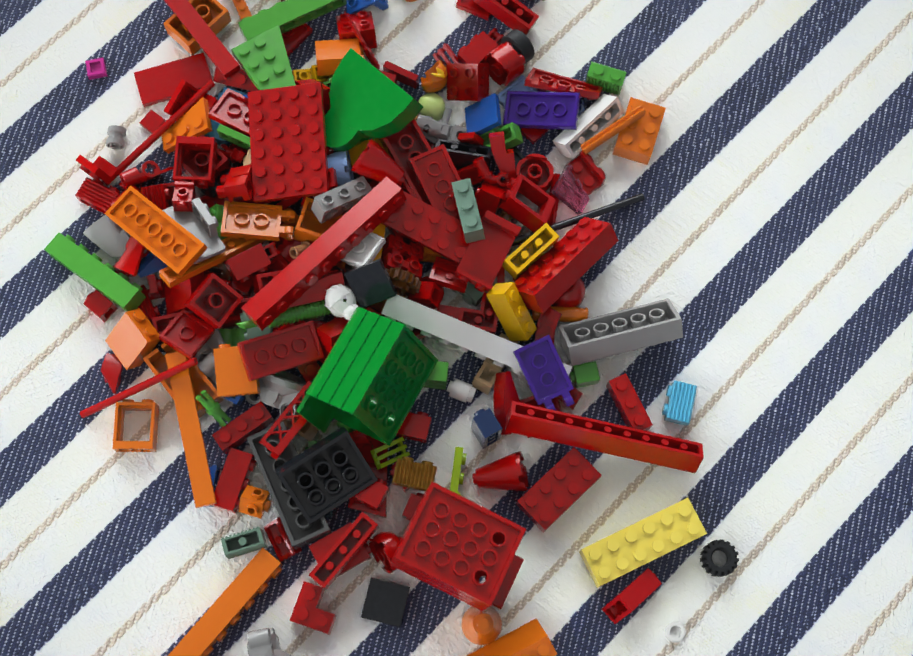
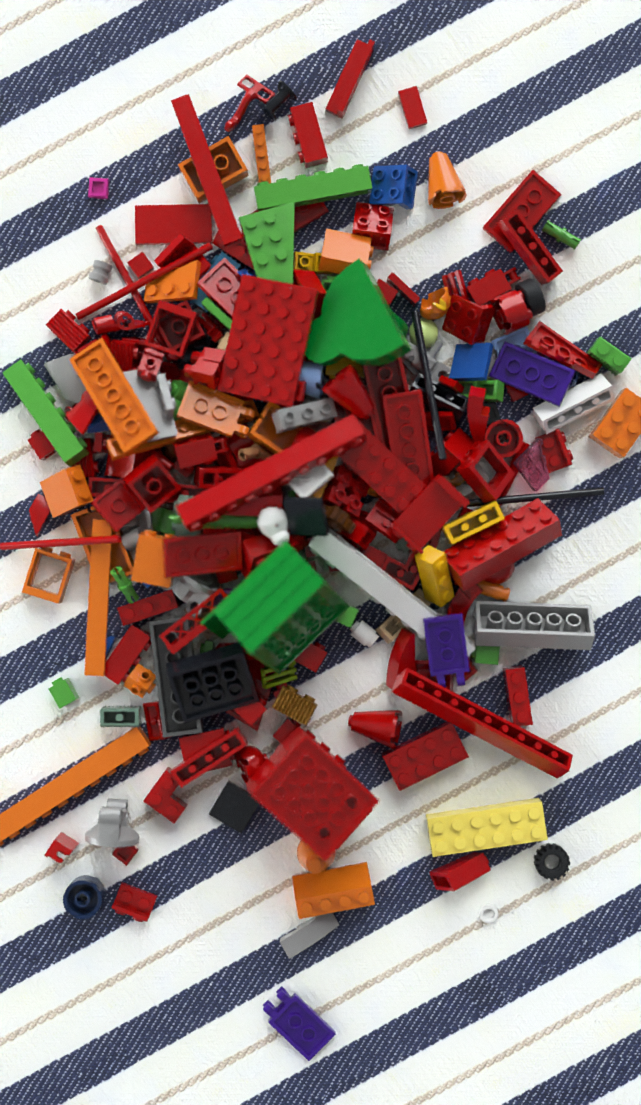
camera: 20 degrees right, 15 degrees up
(98, 169) = (75, 303): red bracket -> none
(139, 134) = (127, 279): none -> red piece
(179, 537) = (63, 692): none -> bright green brick
(367, 50) = (376, 252): red piece -> none
(451, 145) = (429, 385): none -> black piece
(457, 477) = (334, 713): lime plate -> none
(468, 210) = (423, 468): sand green brick -> none
(486, 175) = (455, 429): red piece -> none
(486, 427) = (375, 681): dark blue brick -> none
(613, 129) = (596, 419): orange axle -> none
(680, 403) = (566, 708): medium azure brick -> none

